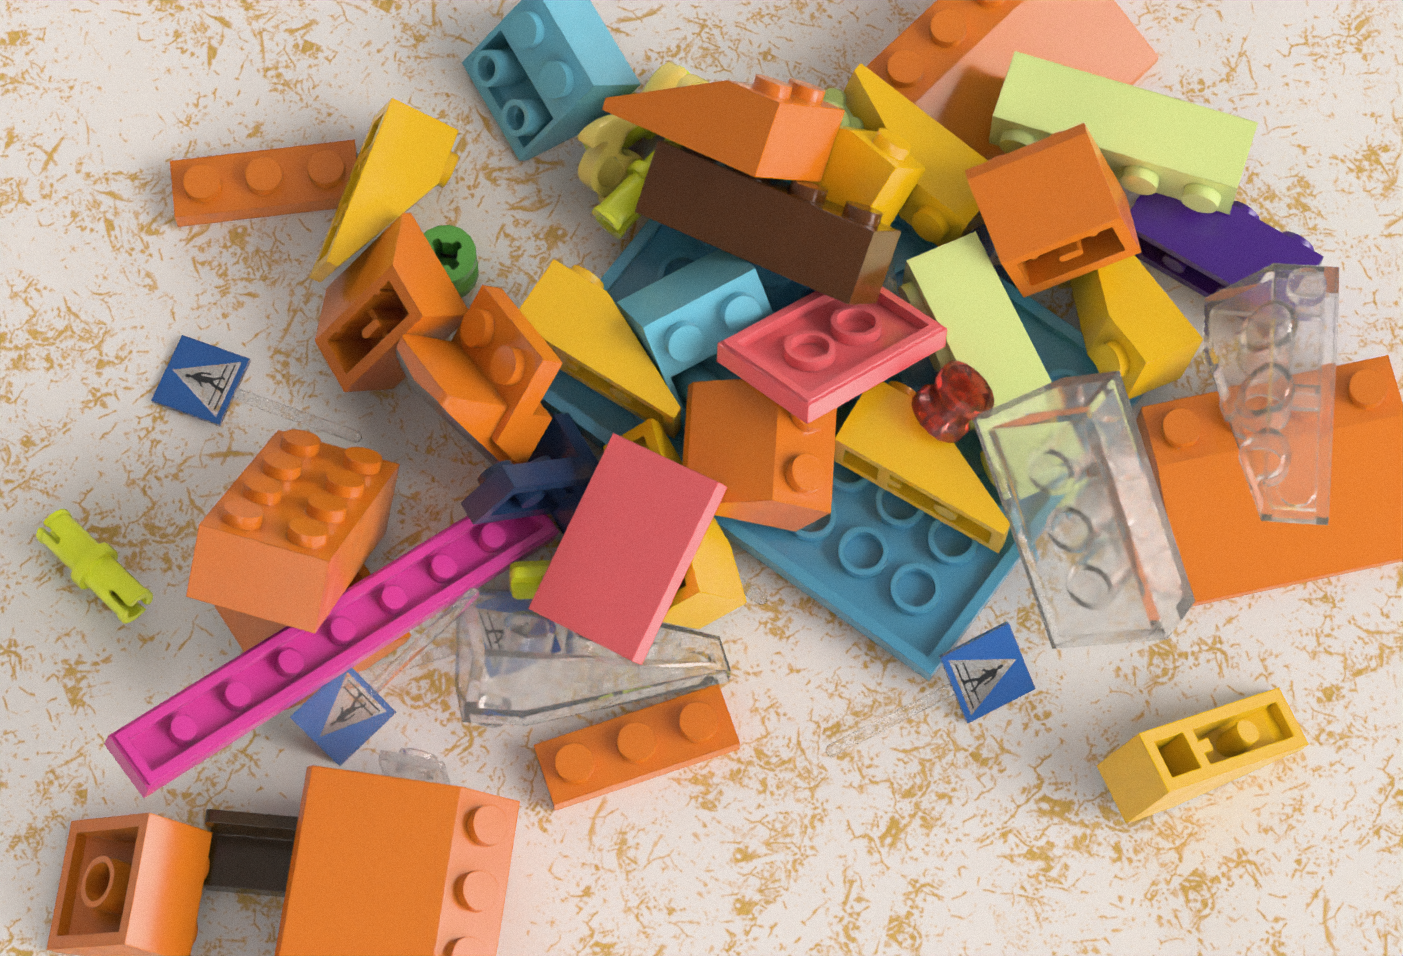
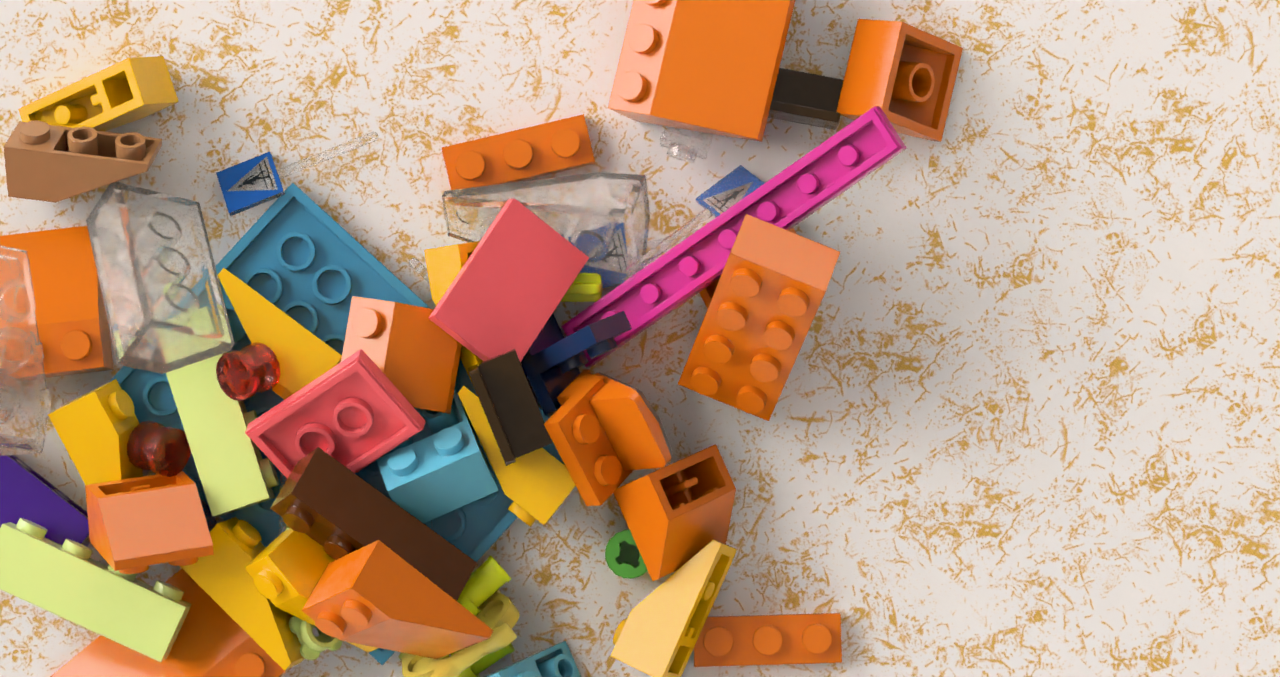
camera: 175 degrees left, 15 degrees up
(94, 565) = (915, 333): neon yellow pin -> none
(207, 379) = (824, 477): piece -> none
(612, 386) = (509, 406): none -> dark brown panel
(1057, 313) = (158, 448): none -> clear red wheel
(1220, 665) = (63, 162): none -> medium nougat slope

